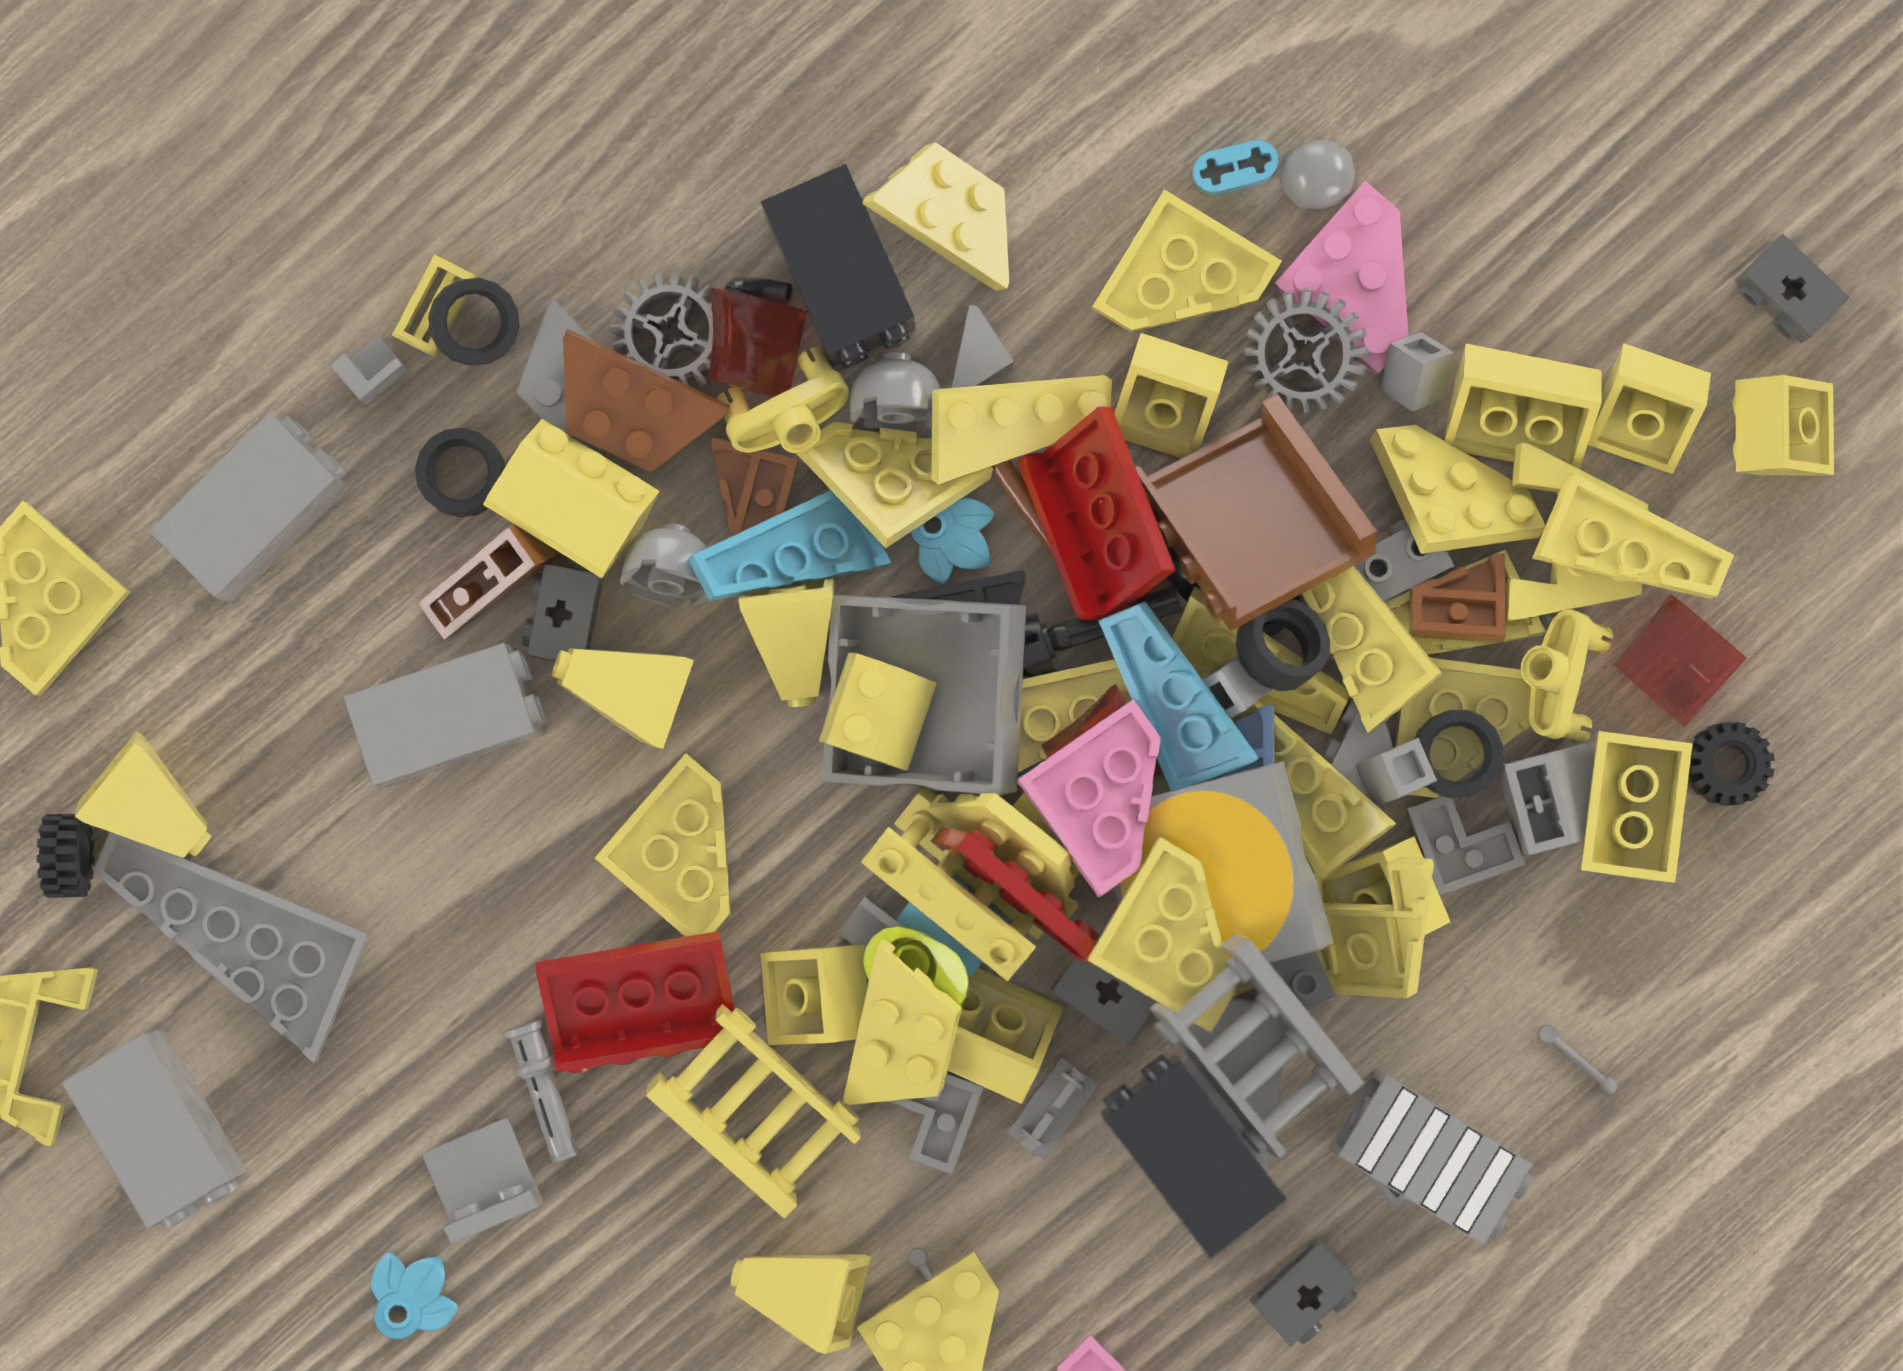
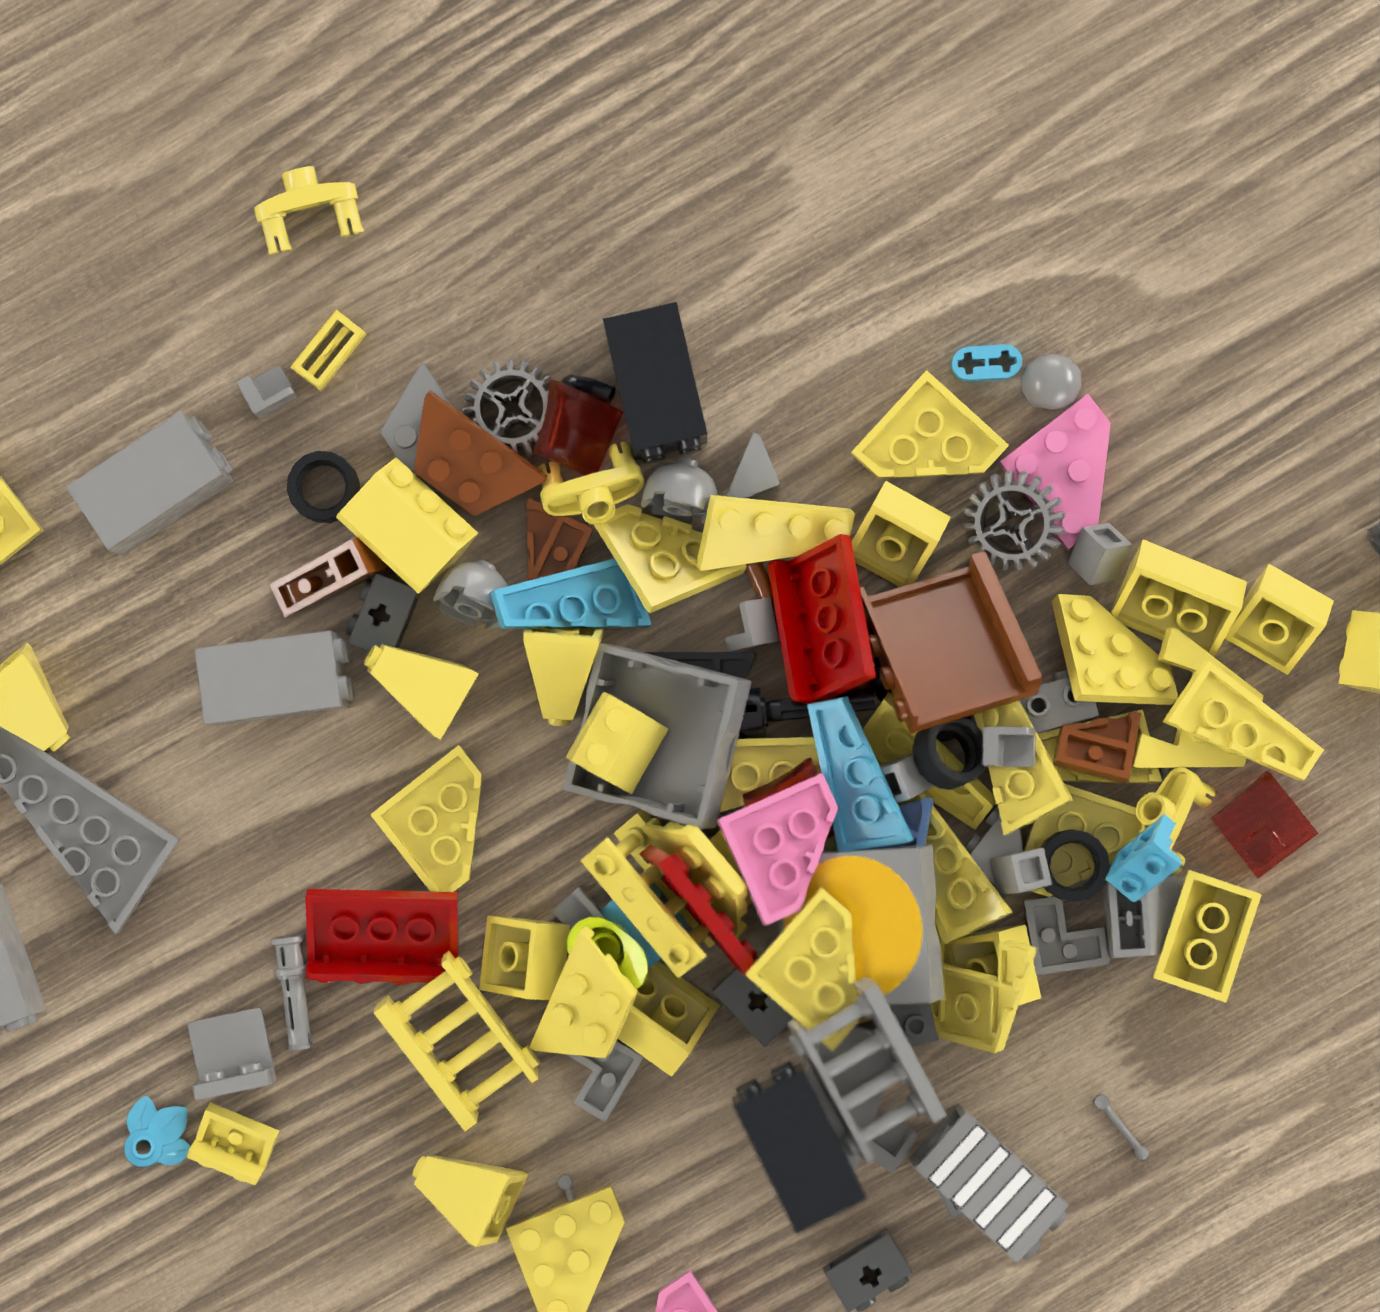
camera: 10 degrees right, 0 degrees up
(366, 121) = (303, 193): none -> light yellow connector
(506, 1289) = (233, 1144): none -> light yellow bracket
(508, 316) = (384, 361): black tyre -> none
(949, 211) = (752, 355): light yellow wing -> none
(957, 541) = (707, 618): medium azure plate -> none
(1021, 538) = (758, 625): none -> light grey panel
(1052, 1109) = (695, 1085): light grey hinge -> none
(1305, 1135) = (892, 1146): none -> light grey panel
(1353, 623) = (1009, 746): none -> light grey panel
(1543, 730) = (1145, 860): none -> medium azure bracket
(1757, 763) = (1309, 923): black tyre -> none

